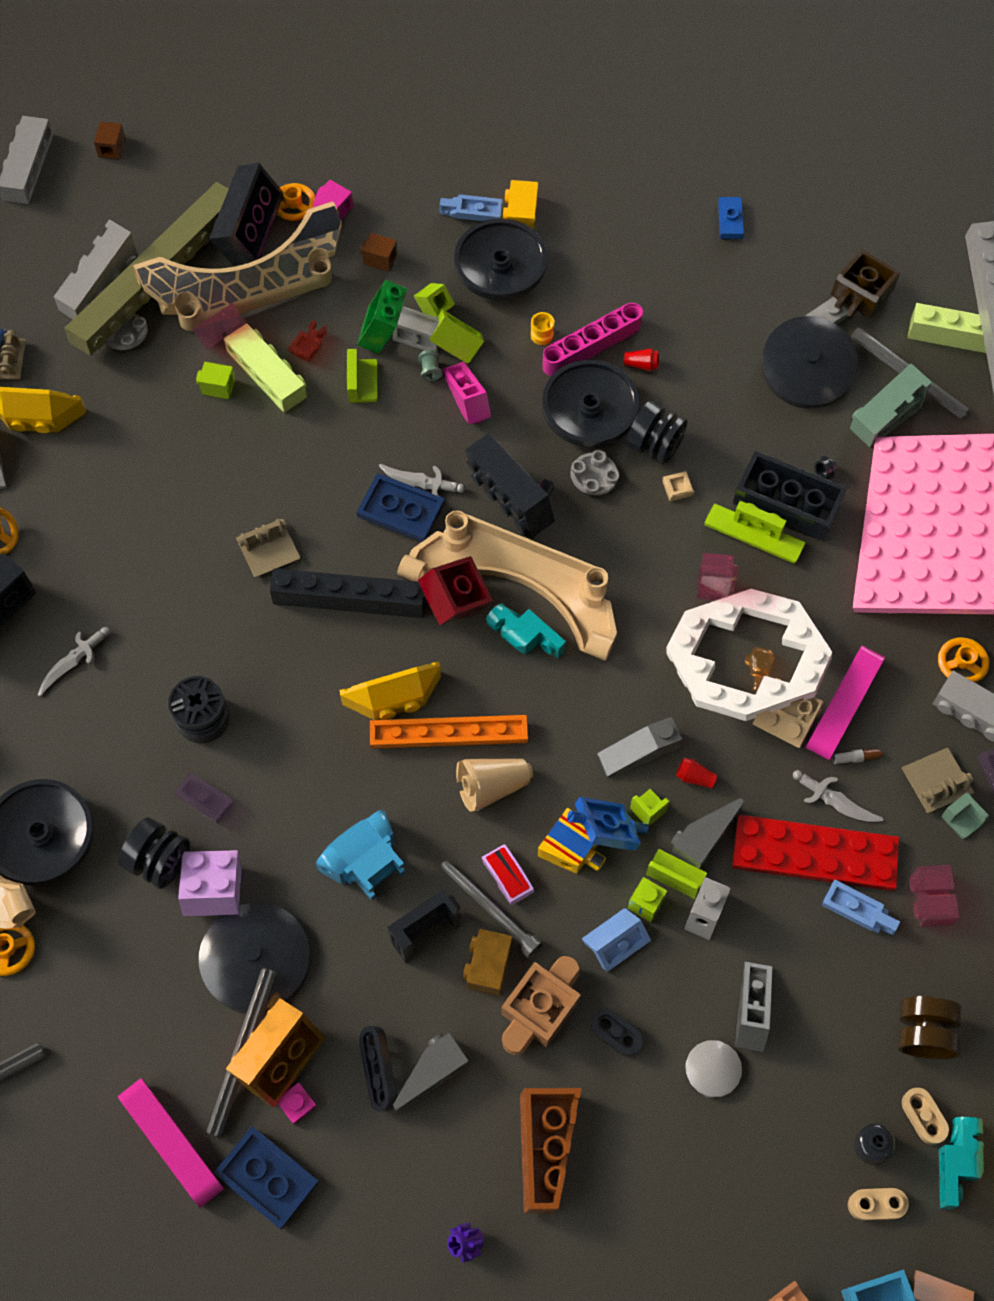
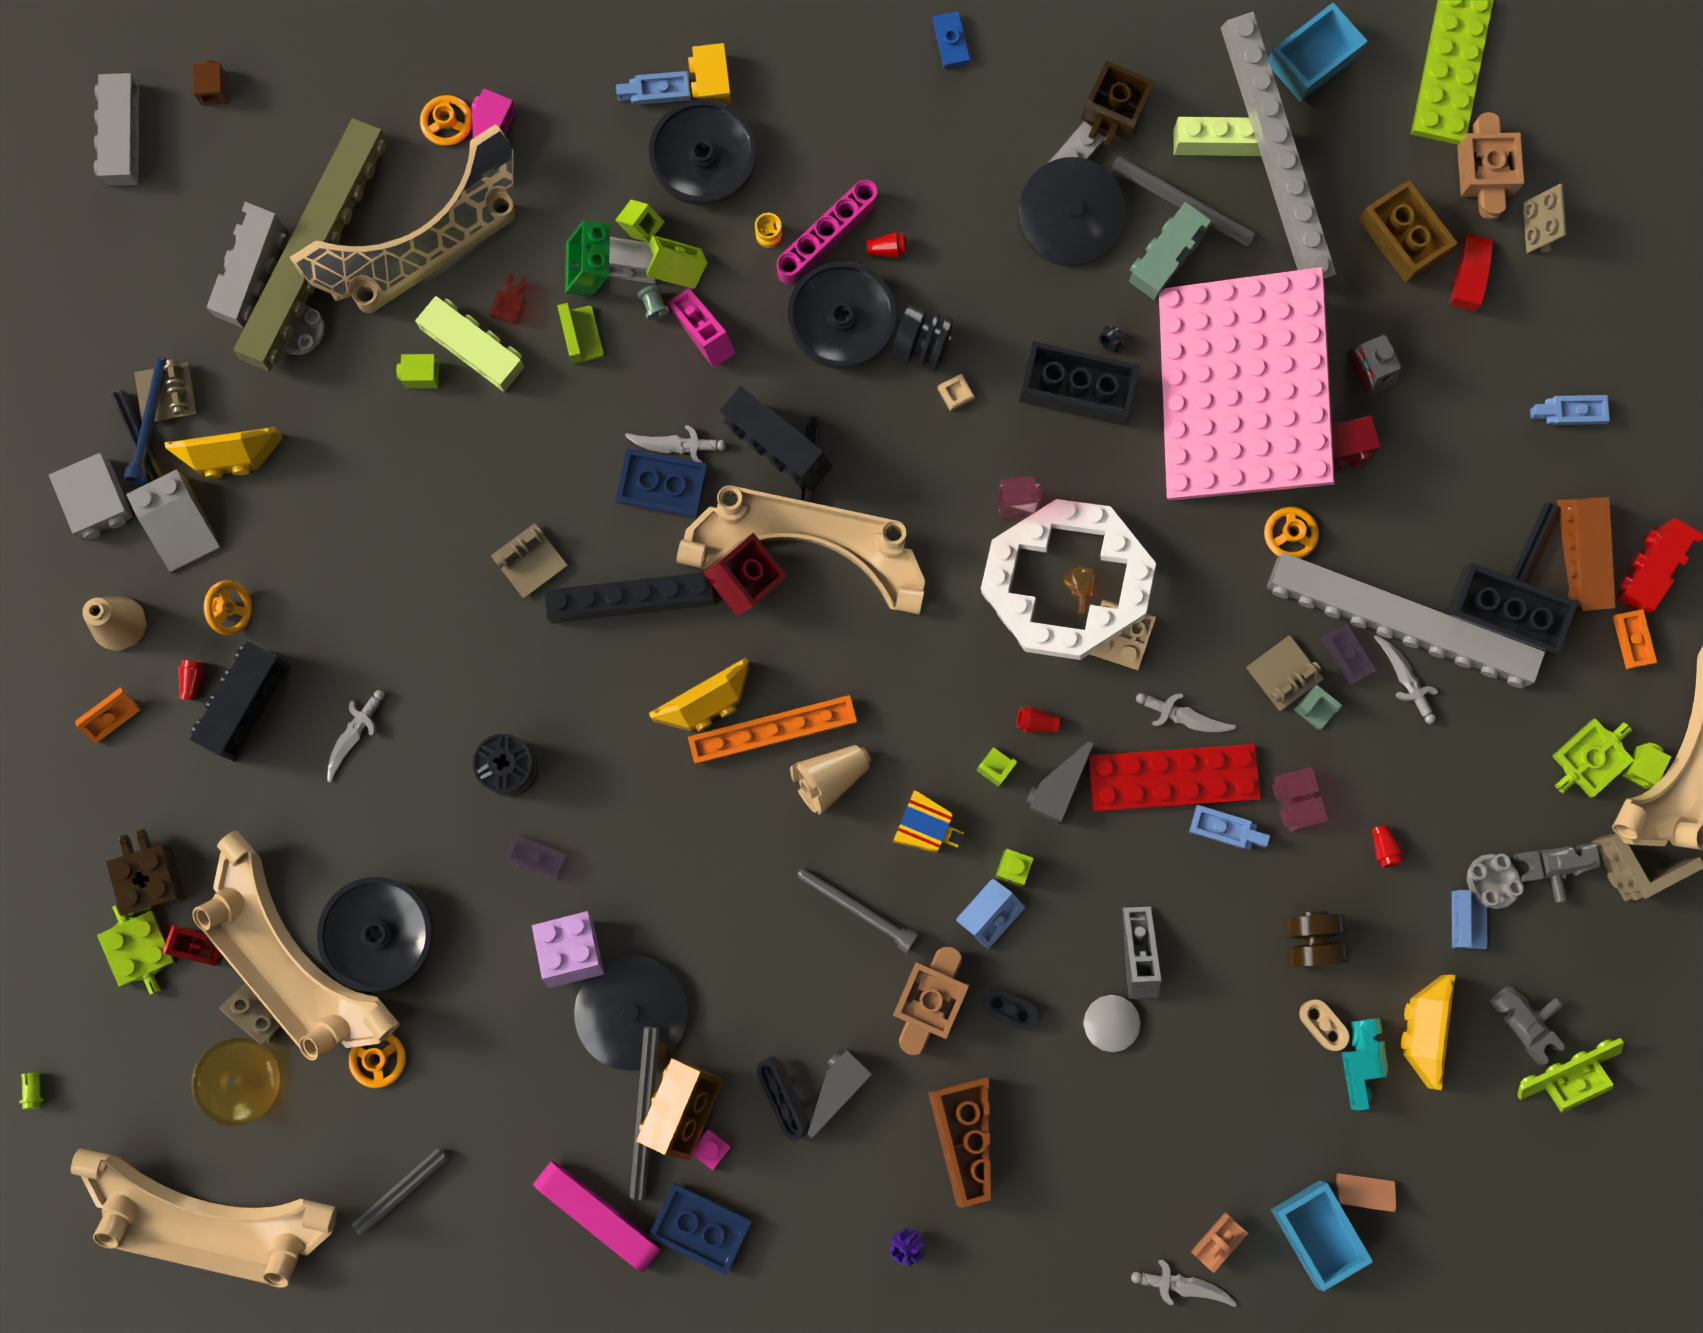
camera: 15 degrees left, 15 degrees up
(153, 852) = (497, 930): black wheel -> none
(211, 329) = (409, 299): clear pink piece -> none
(247, 215) = (400, 157): black brick -> none
(362, 855) = (713, 882): dark azure piece -> none
(379, 252) = (561, 169): reddish brown brick -> none
(421, 919) = (809, 922): black panel -> none
(488, 962) = (868, 967): pearl gold brick -> none
(508, 874) = (867, 870): slope -> none
(525, 631) = (827, 601): teal plate -> none
(594, 473) = (862, 397): light grey dish -> none
(607, 823) = (958, 799): blue plate -> none
(641, 747) = (974, 705): slope -> none
(676, 873) = (1037, 831): lime panel -> none
(707, 907) = (1076, 863): light grey torso -> none
(756, 529) = (1049, 429): lime bracket -> none
(845, 702) = (1177, 608): dark pink beam -> none
(856, 756) = (1198, 664): light grey piece -> none
(868, 1151) = (1270, 1065): black head -> none
(878, 1204) = (1293, 1119): tan plate -> none

